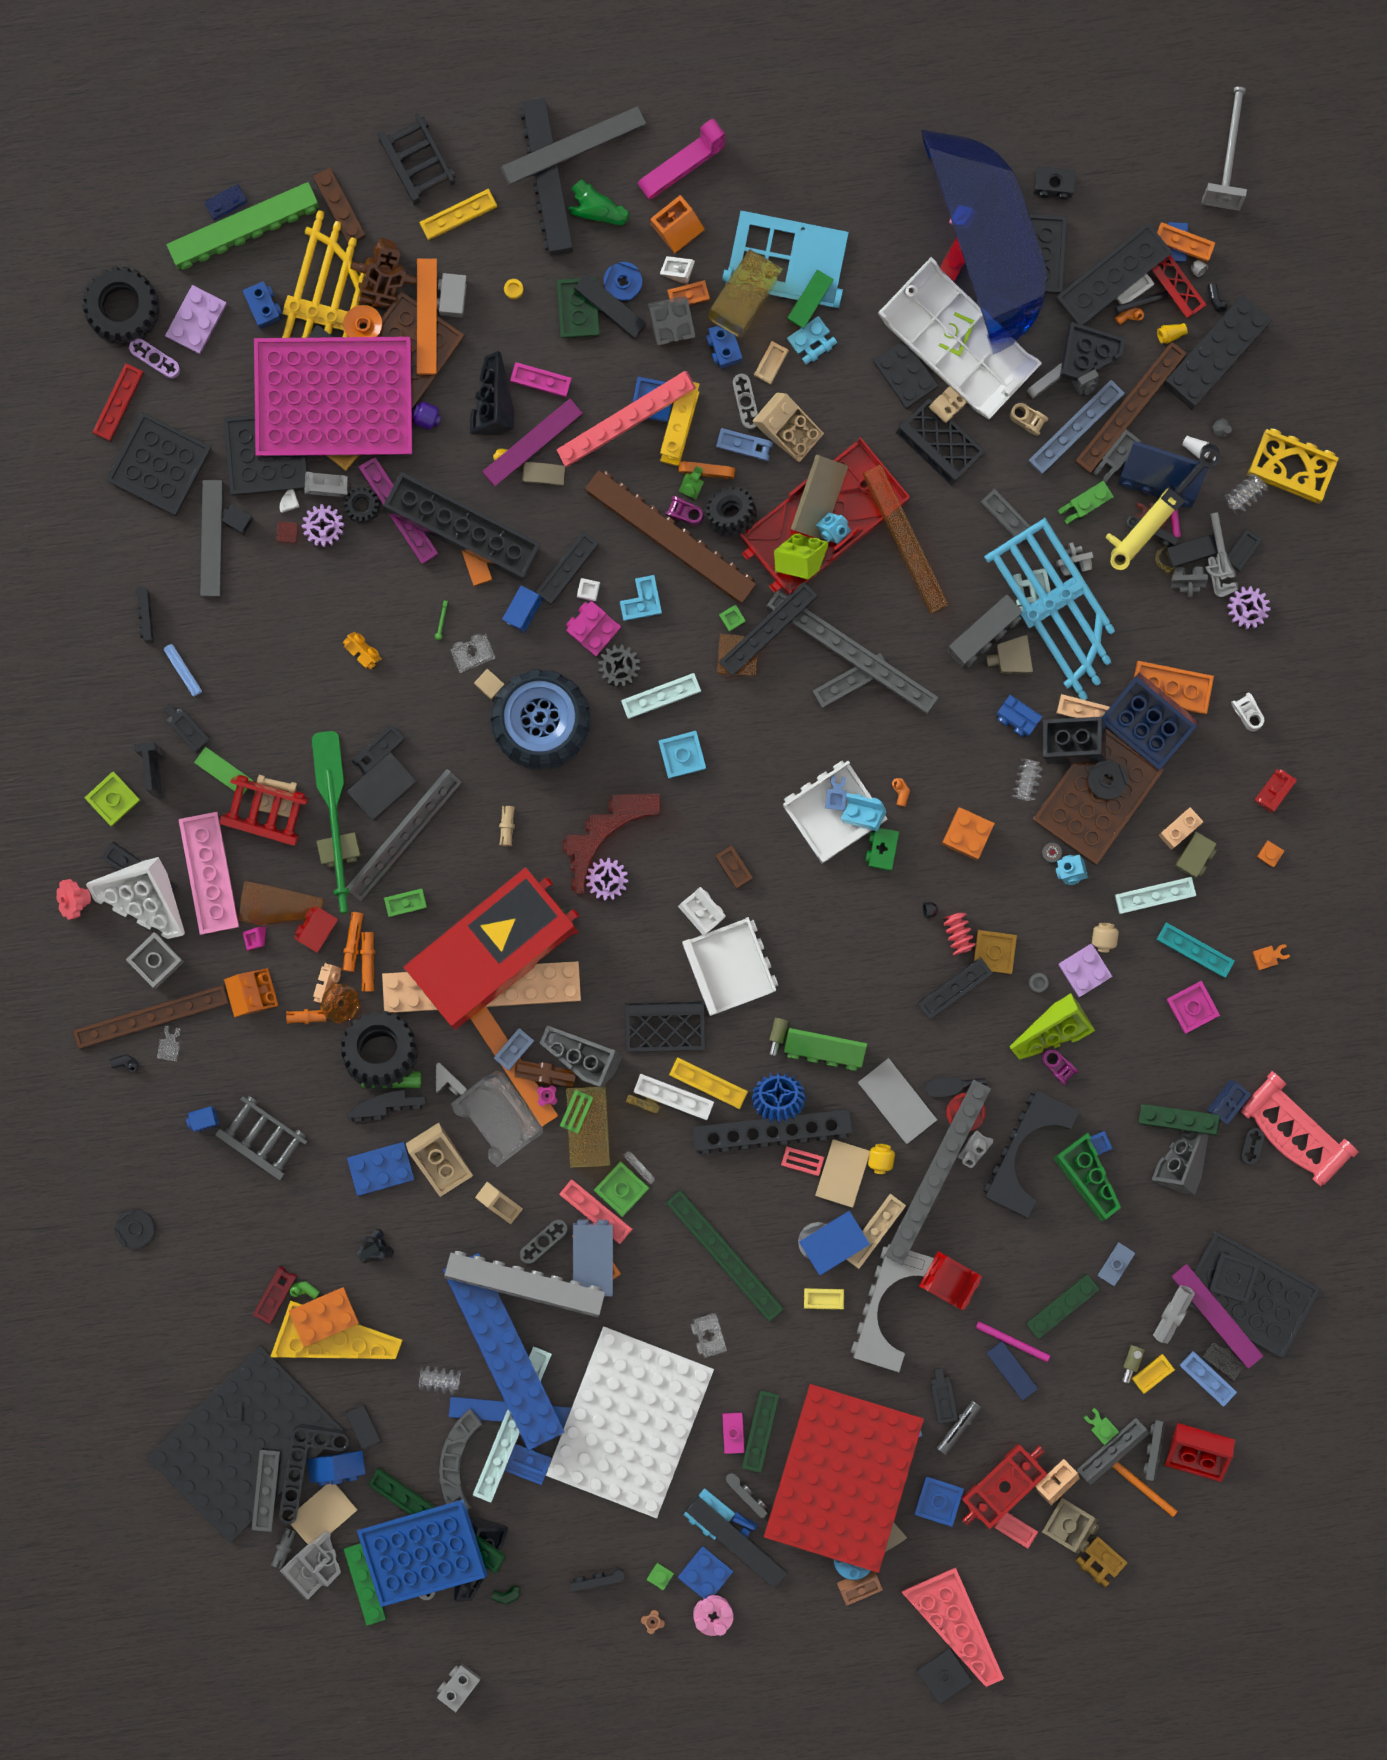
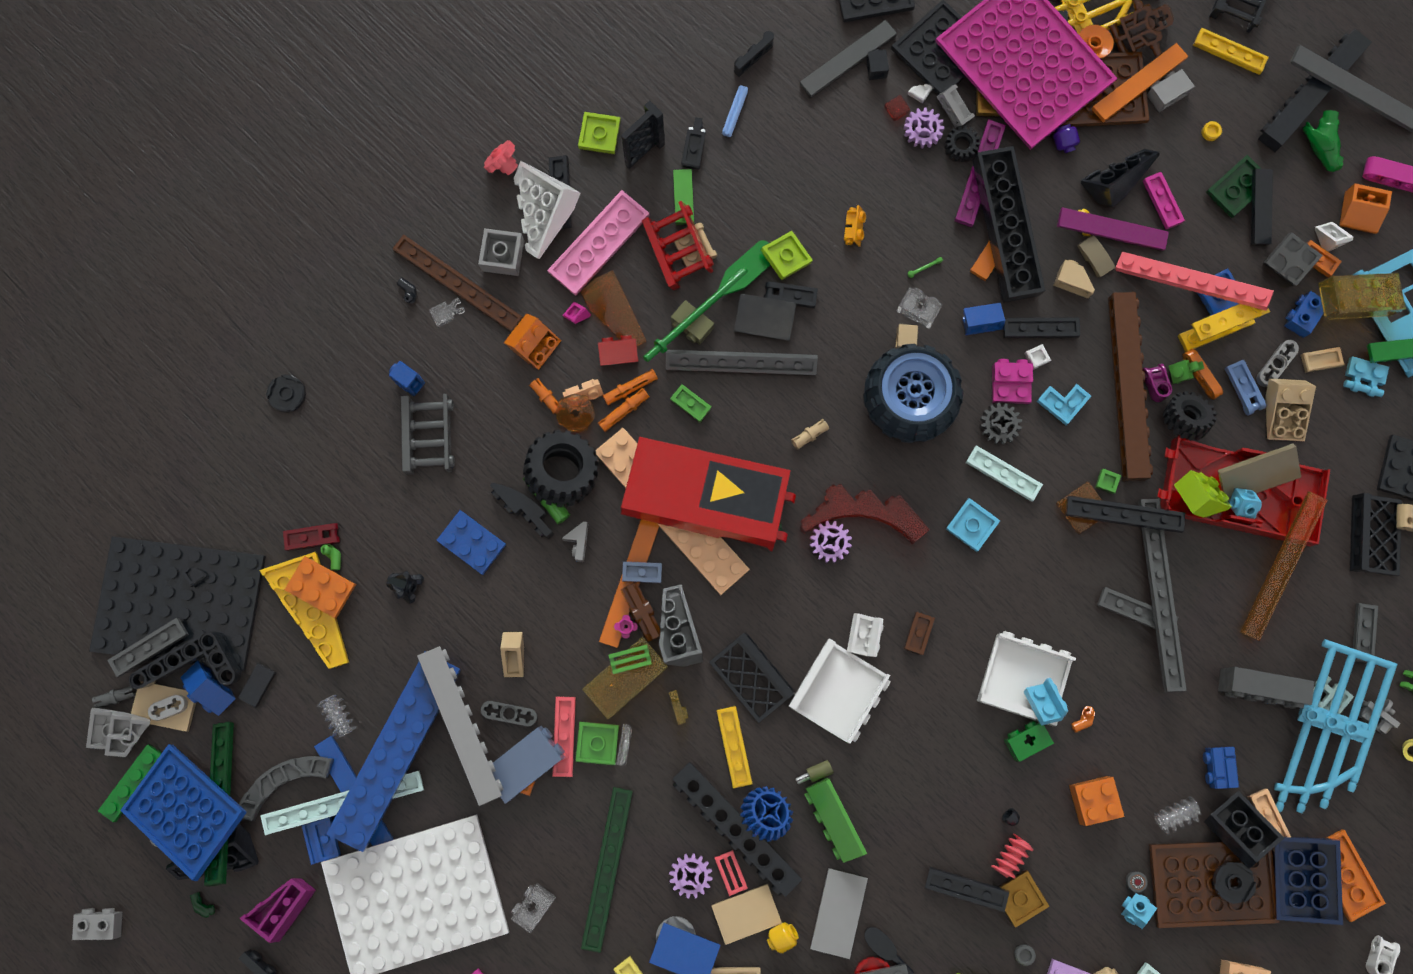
camera: 55 degrees right, 5 degrees down
(331, 1511) = (166, 703): none -> light grey beam
(342, 727) = (786, 255): none -> lime plate
(439, 1159) = (511, 581): tan slope -> none
(499, 1116) = (581, 601): clear windscreen -> none
(547, 508) = (1074, 279): none -> tan slope
(558, 1534) = (278, 912): none -> magenta wedge
(632, 275) = (1295, 197): blue plate -> none
(673, 1096) = (702, 727): white plate -> none
(780, 1184) = (698, 870): none -> lavender gear
(836, 797) = (1038, 670): medium blue plate -> none
(1012, 657) = (1263, 725): dark tan torso -> none

